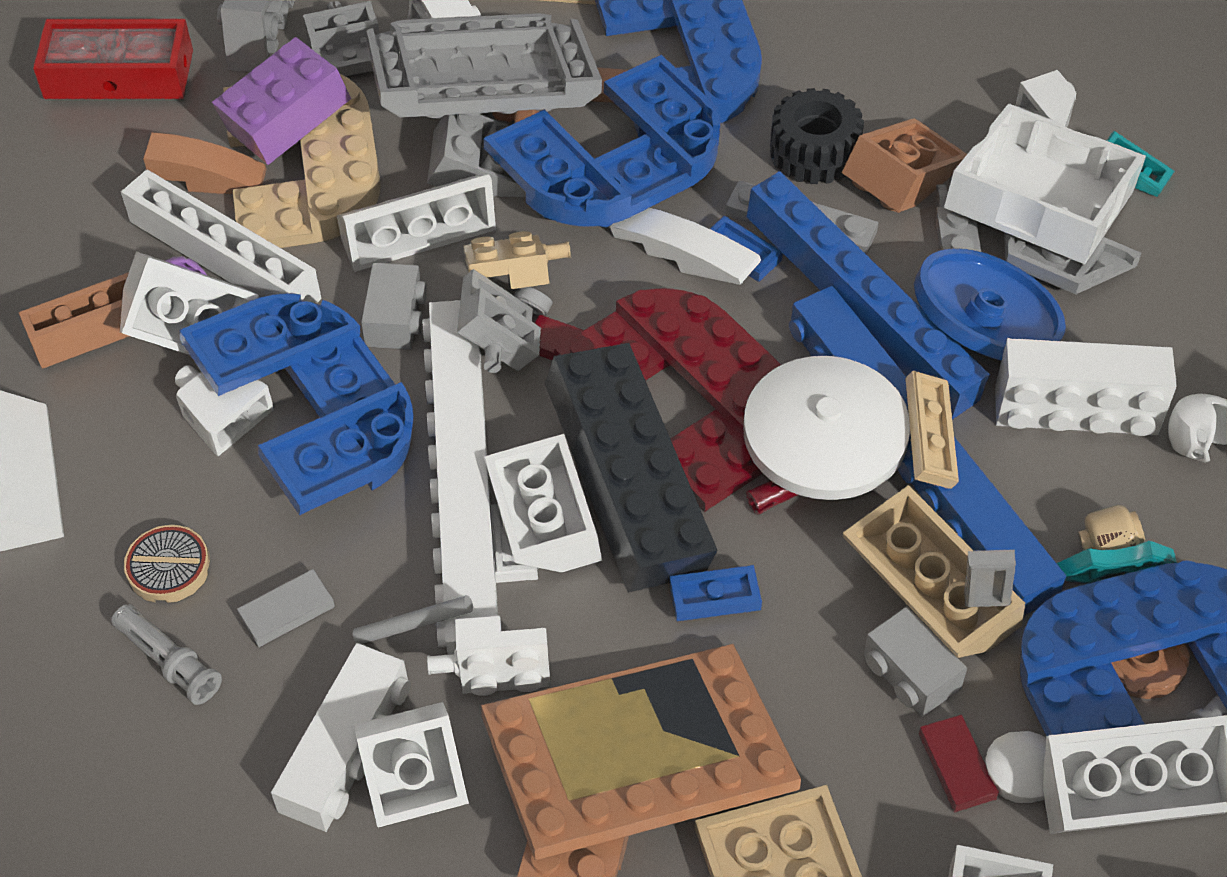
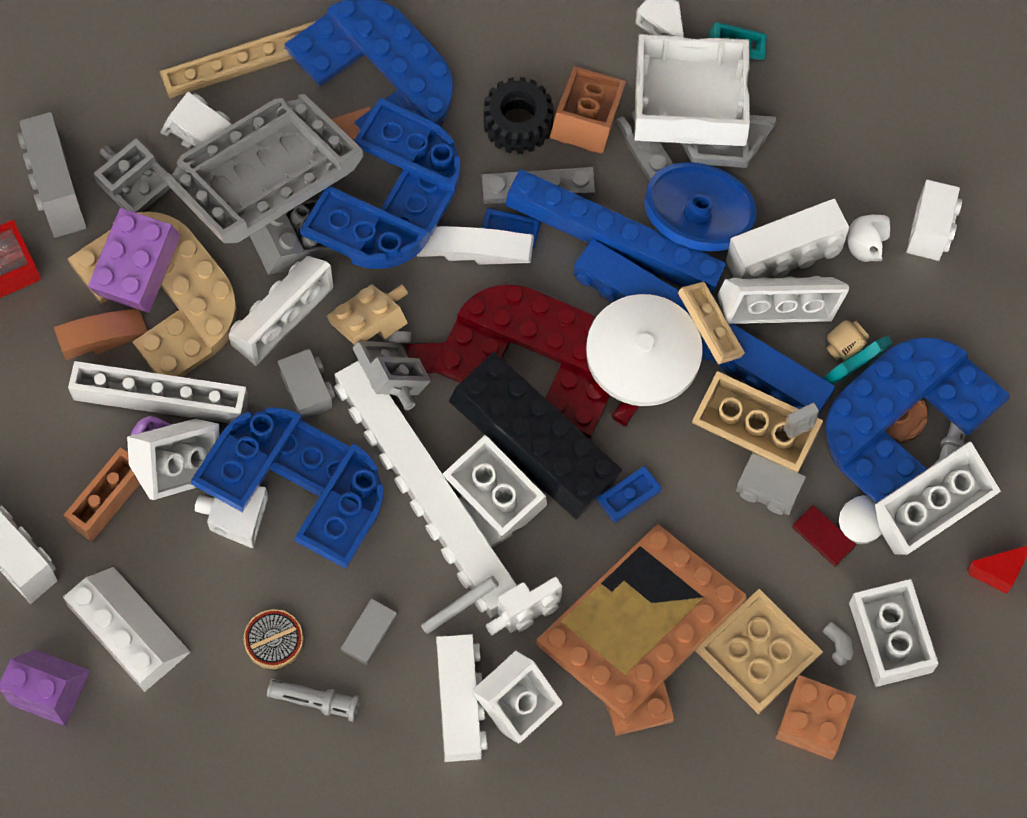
camera: 30 degrees left, 15 degrees up
(1043, 443) = (781, 299): none -> white slope

